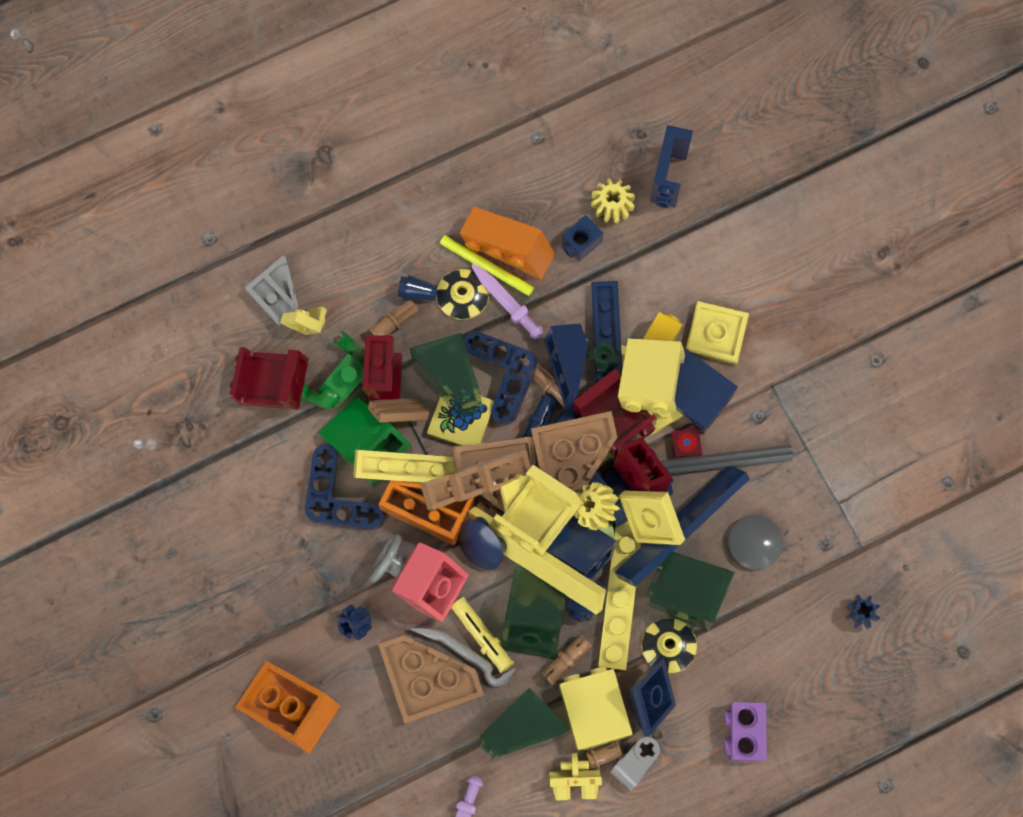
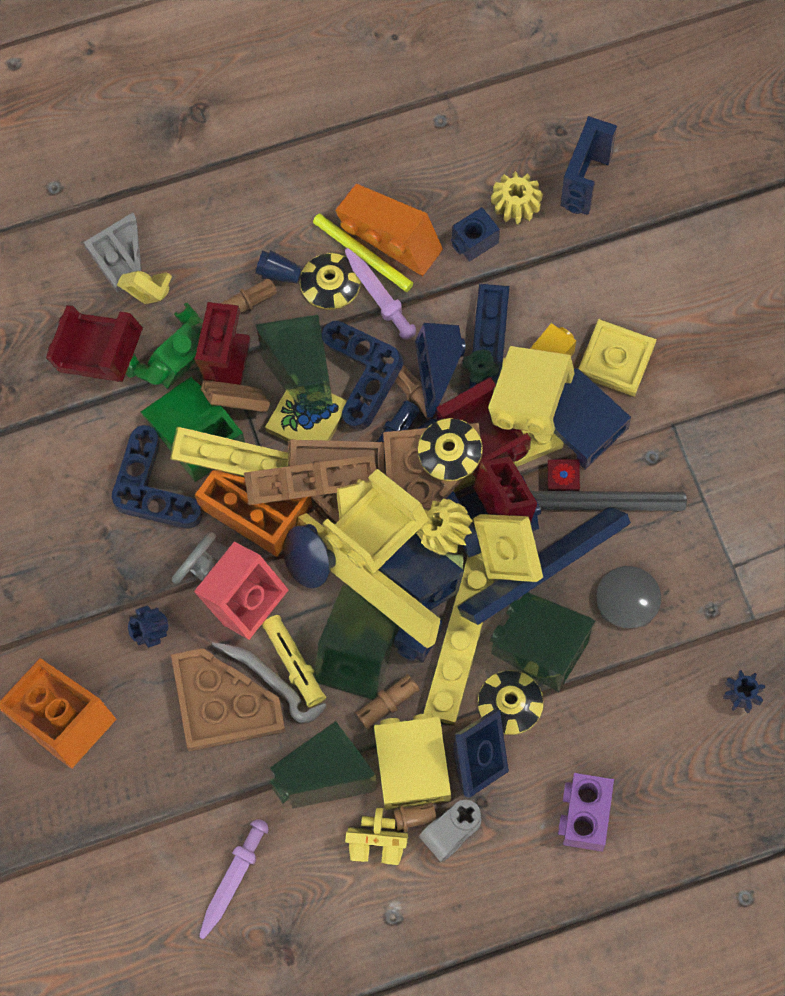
camera: 10 degrees right, 5 degrees down
(592, 451) = (450, 464): none -> dish

